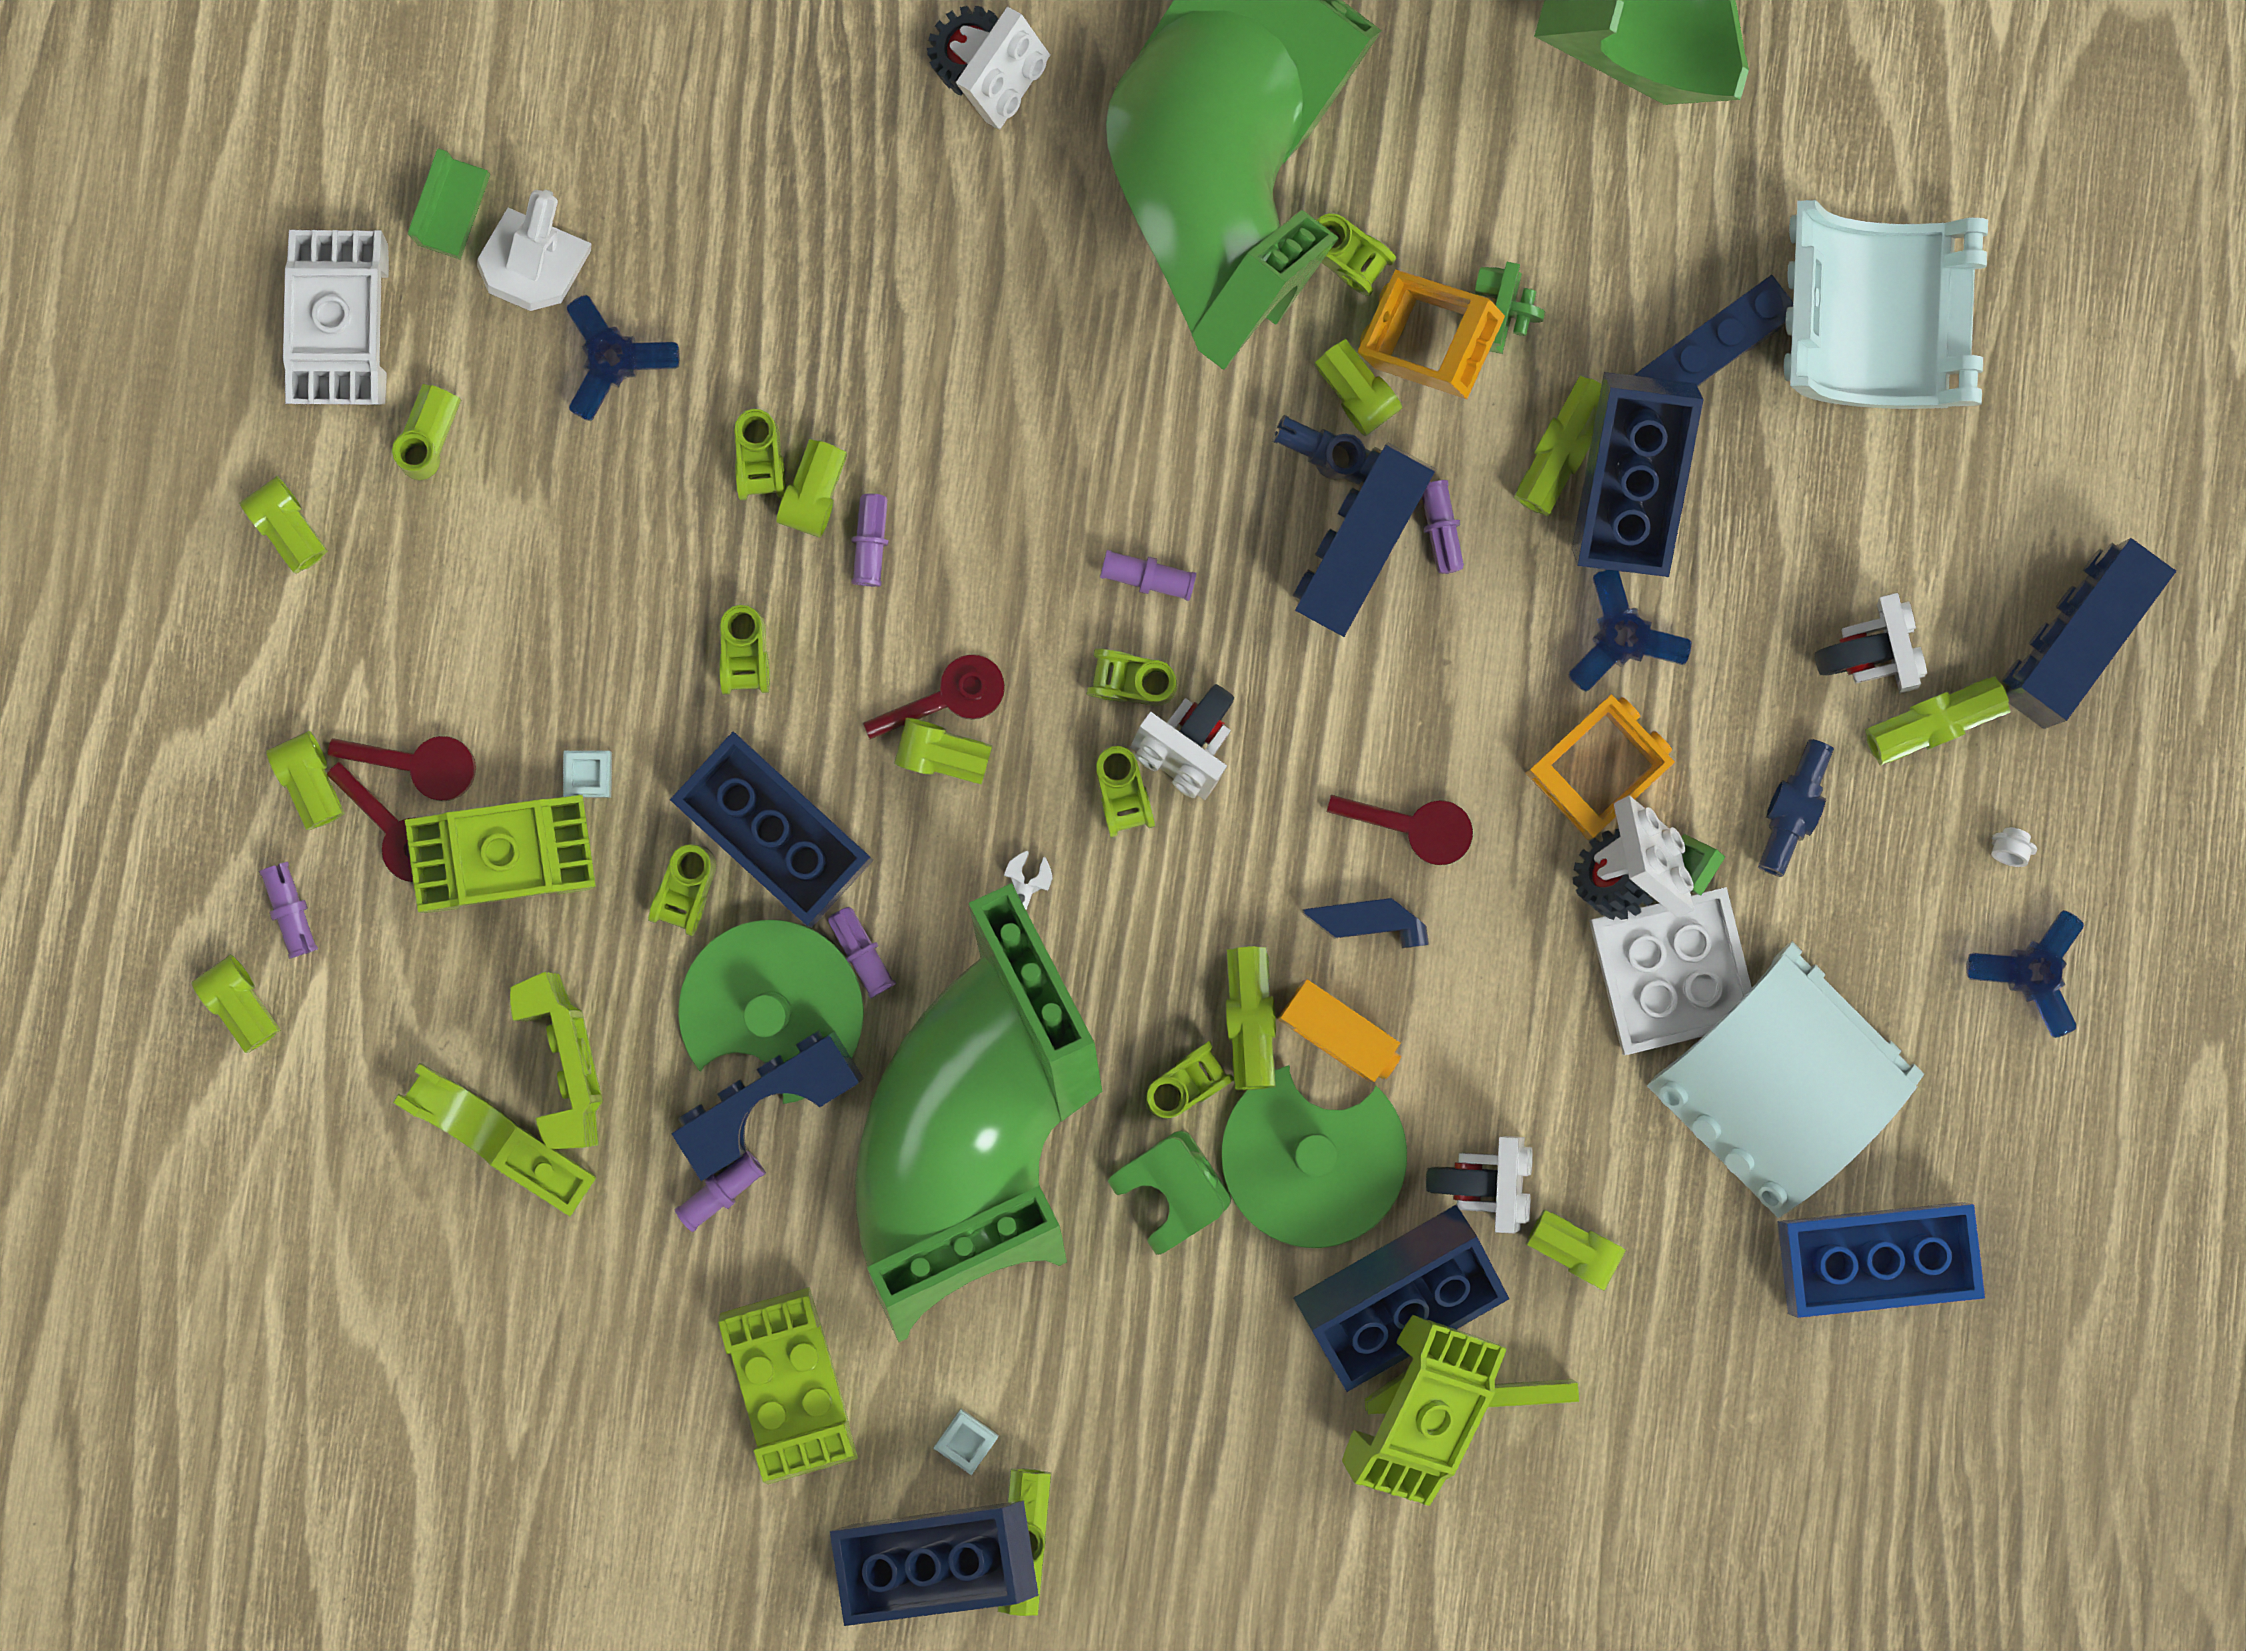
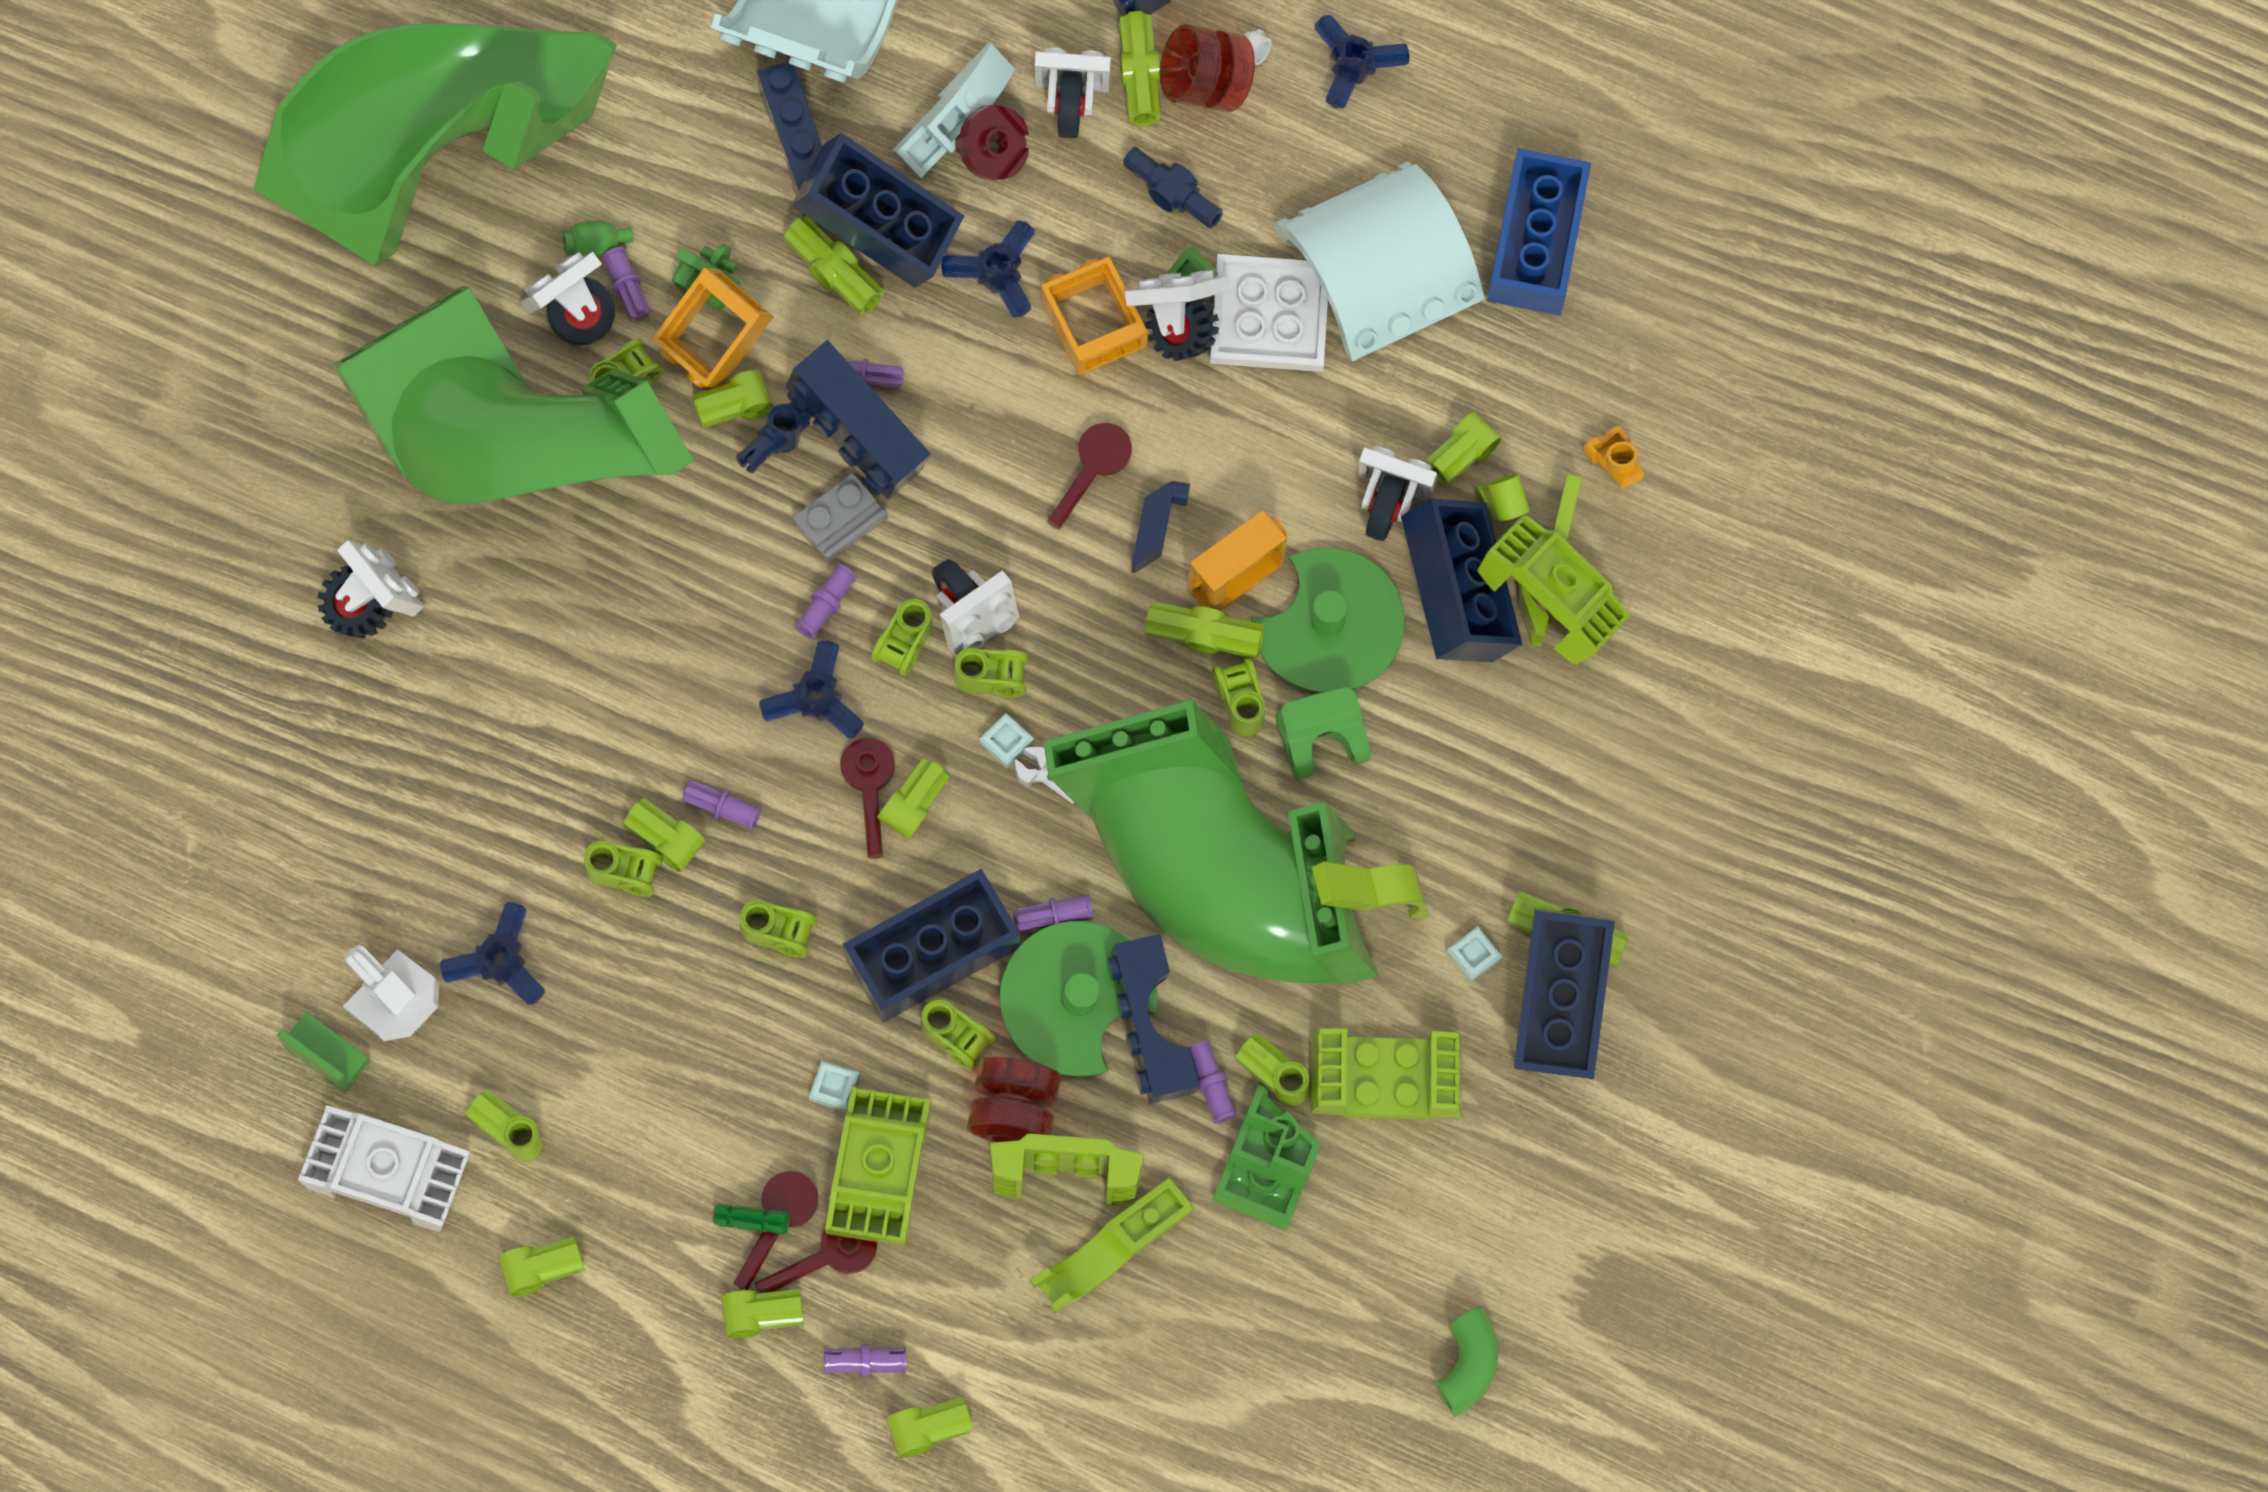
camera: 75 degrees left, 15 degrees down
(404, 734) = (751, 1218): none -> green axle
(488, 1583) = (1475, 1362): none -> bright green cylinder
(601, 981) = (1013, 1099): none -> clear red wheel
(647, 1281) = (1267, 1163): none -> bright green slope
(756, 1252) = (1272, 1067): none -> lime piece
(974, 1308) = (1370, 888): none -> lime piece
(1019, 583) = (817, 679): none -> clear blue bush
(1050, 833) = (1006, 740): none -> light aqua tile
(1257, 557) = (840, 518): none -> light grey plate
(1414, 167) = (577, 306): none -> plate
(1462, 217) = (626, 283): none -> medium lavender axle
(1505, 162) = (595, 237): none -> bright green plant
(1522, 1317) = (1503, 497): none -> lime piece
(1632, 1426) = (1616, 456): none -> light orange plate
(1781, 556) = (974, 142): none -> dark red plate
(1805, 526) = (936, 132): none -> light aqua slope
(1954, 801) = (1207, 68): none -> clear red wheel

